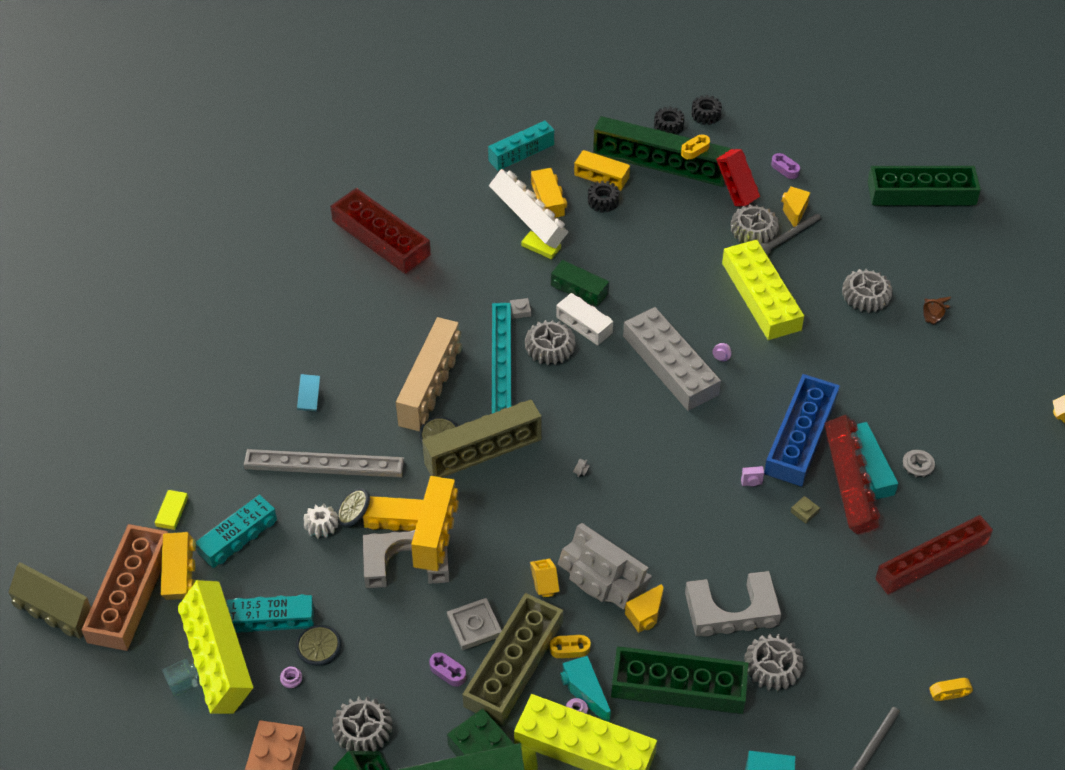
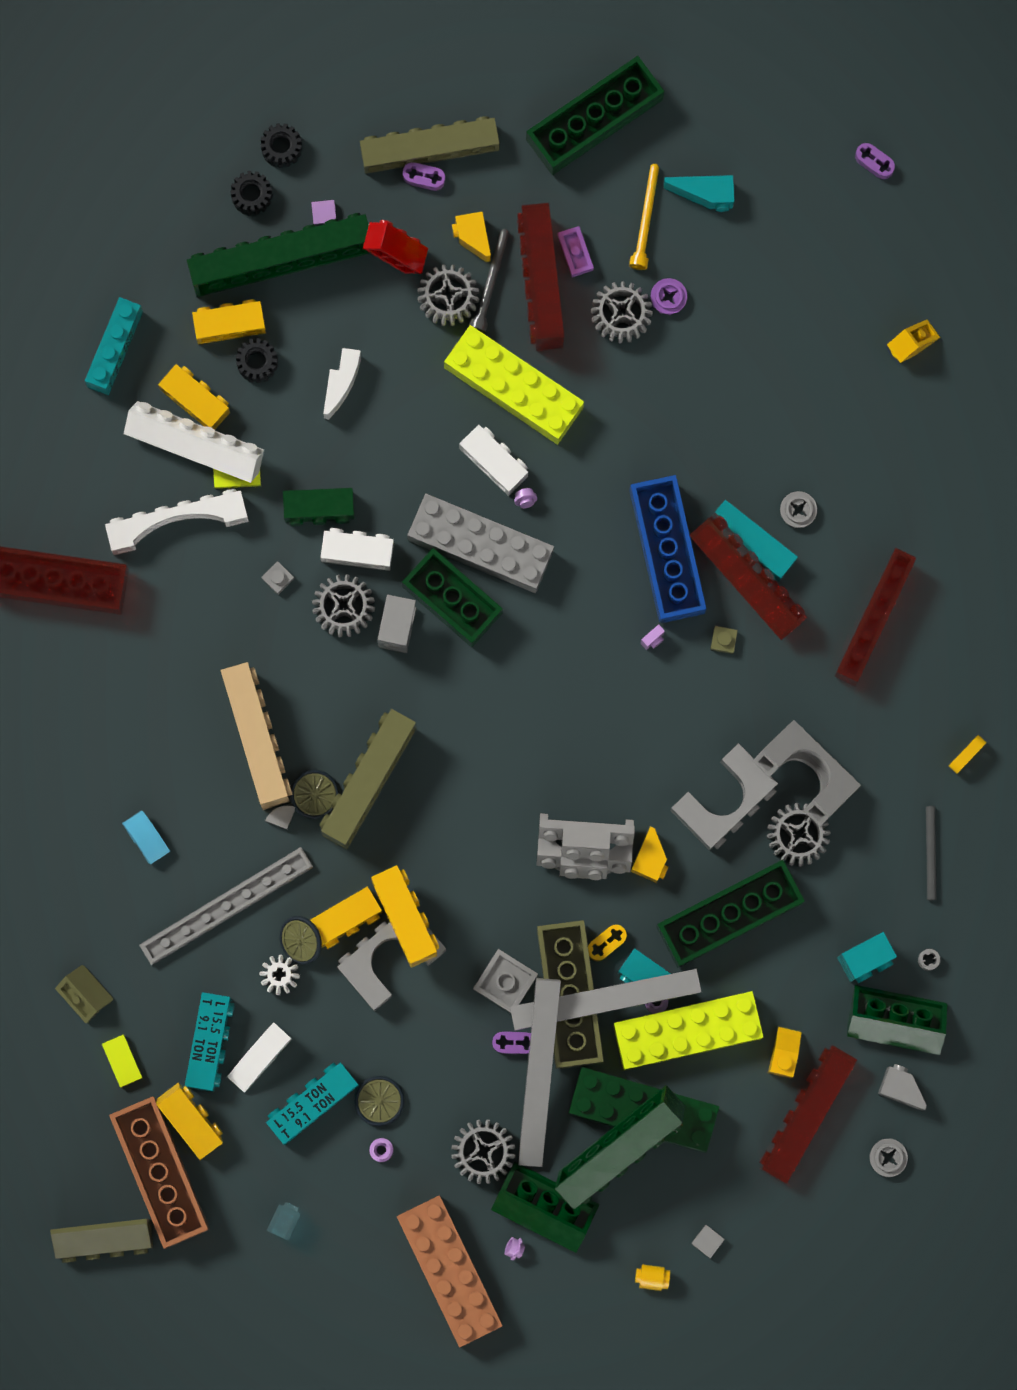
camera: 40 degrees left, 30 degrees up
(185, 454) = (83, 993): none -> olive panel
(215, 647) = (296, 1176): neon yellow brick -> none
(262, 561) = (259, 1057): none -> white slope
(406, 434) = (281, 816): none -> light grey tile
(446, 690) = (539, 1072): none -> light grey tile
(447, 234) = (126, 533): none -> white arch
(501, 356) = (311, 664): teal plate -> none
(538, 670) = (615, 997): none -> light grey tile
(545, 577) = (533, 887): yellow slope -> none
(574, 366) = (396, 623): none -> light grey piece
(581, 468) = (481, 739): light grey plate -> none
(627, 374) = (452, 597): none -> dark green brick
(648, 232) = (341, 381): none -> white slope
(695, 146) = (322, 240): yellow beam -> none
(717, 320) = (494, 459): none -> white brick
(802, 151) = (429, 145): none -> olive brick
(811, 597) = (798, 745): none -> light grey arch
(824, 242) = (542, 277): none -> clear red brick
(858, 246) = (575, 251): none -> medium lavender plate
(900, 271) = (639, 258): none -> yellow piece
(913, 298) = (670, 286): none -> medium lavender gear
(934, 312) = (704, 293): reddish brown piece -> none
(972, 258) = (708, 191): none -> teal slope

